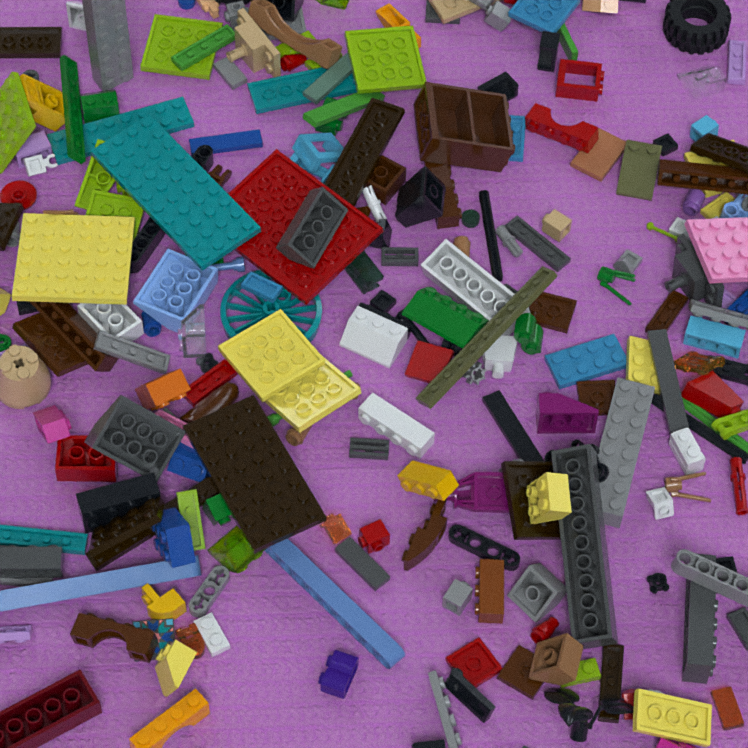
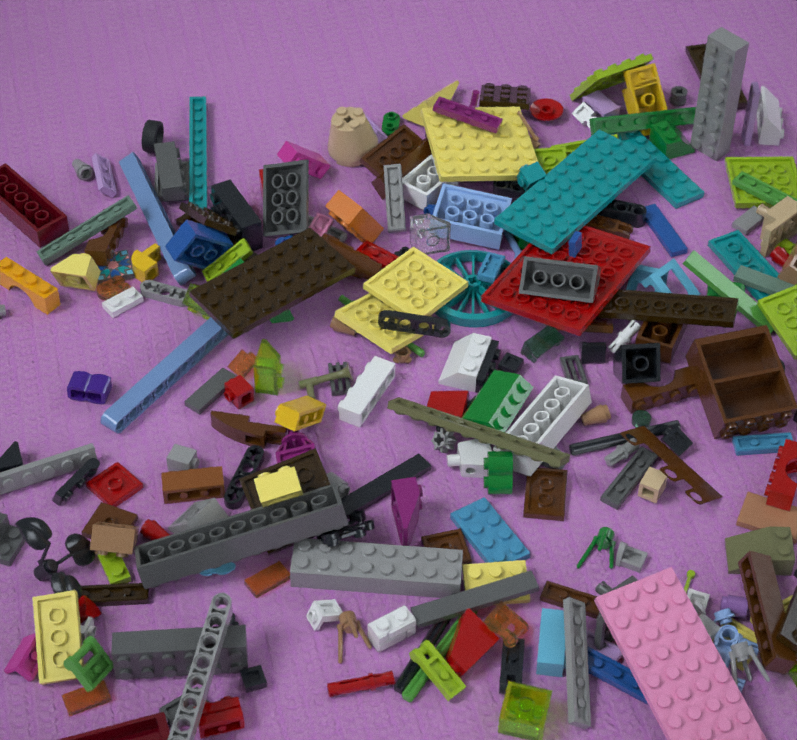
camera: 80 degrees right, 10 degrees down
(41, 254) = (468, 114): none -> magenta plate
(103, 653) = (86, 230): none -> sand green tile
(143, 223) = (530, 175): none -> teal brick
(262, 206) = (575, 244): none -> blue tile
(329, 364) = (414, 320): none -> black beam
(356, 502) = (268, 370): none -> clear neon green slope
(371, 467) = (310, 382): none -> olive piece
(504, 197) = (676, 440): none -> black bracket
(540, 201) = (674, 464): none -> reddish brown piece
(615, 547) = (267, 579): none -> clear orange tile
(703, 694) = (94, 669): none -> bright green plate
(707, 210) = (724, 616): none -> light blue plate

